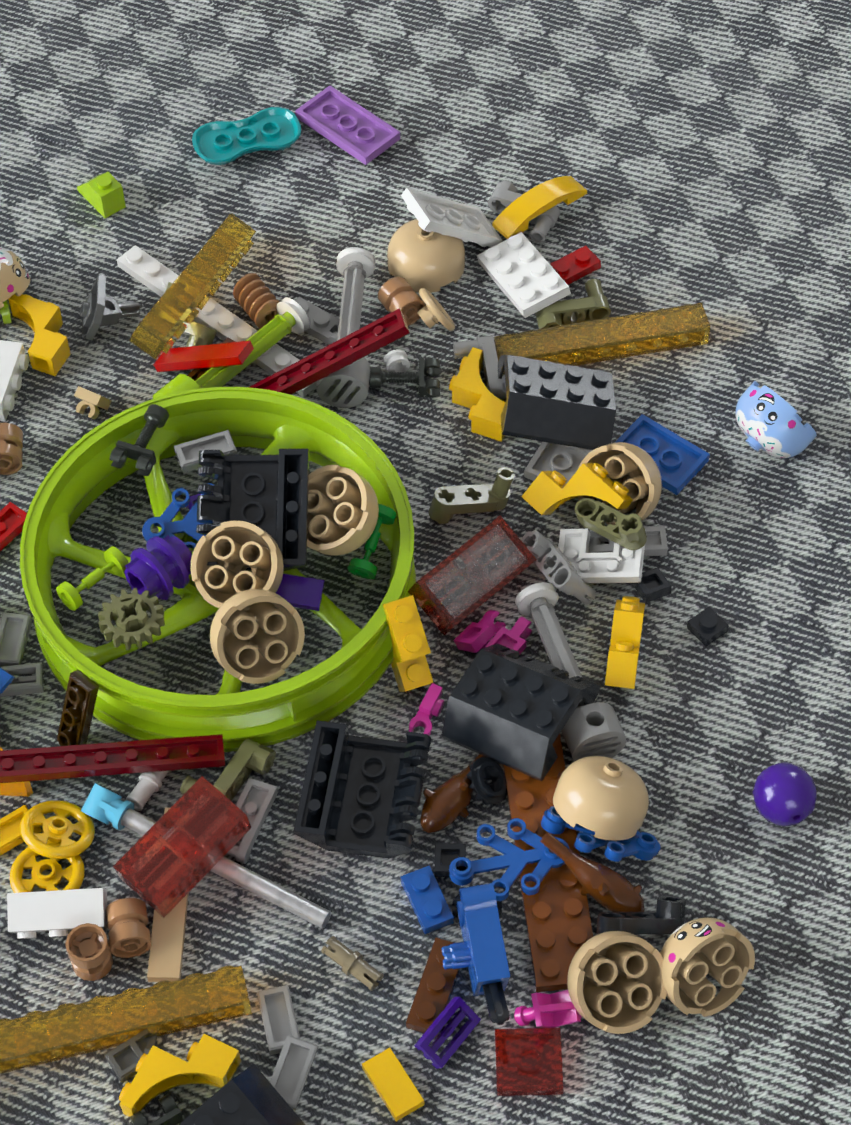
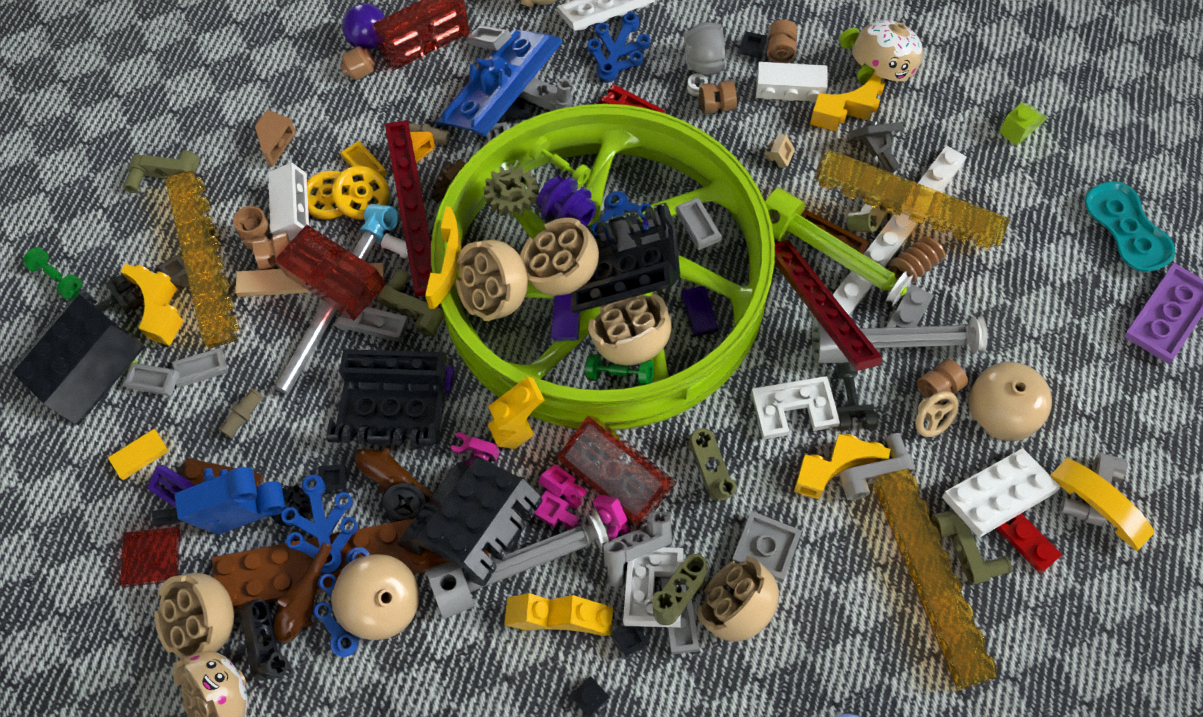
camera: 85 degrees right, 10 degrees up
(156, 417) = (684, 159): pearl dark grey bar -> none
(178, 674) = (440, 284): none -> yellow slope
(204, 356) = (834, 222): red tile -> none
(396, 361) = (868, 386): white bush -> none
(398, 411) = (811, 394): none -> white plate
(427, 899) = (299, 465): blue plate -> none
(451, 218) = (1050, 412): white plate -> none
(517, 580) = (612, 514): none -> dark pink plate
(548, 1011) = (184, 560): dark pink piece -> none
(557, 402) = (830, 530): black slope -> none
(591, 479) = (723, 565): yellow arch -> none
(674, 456) = (792, 642): blue plate -> none

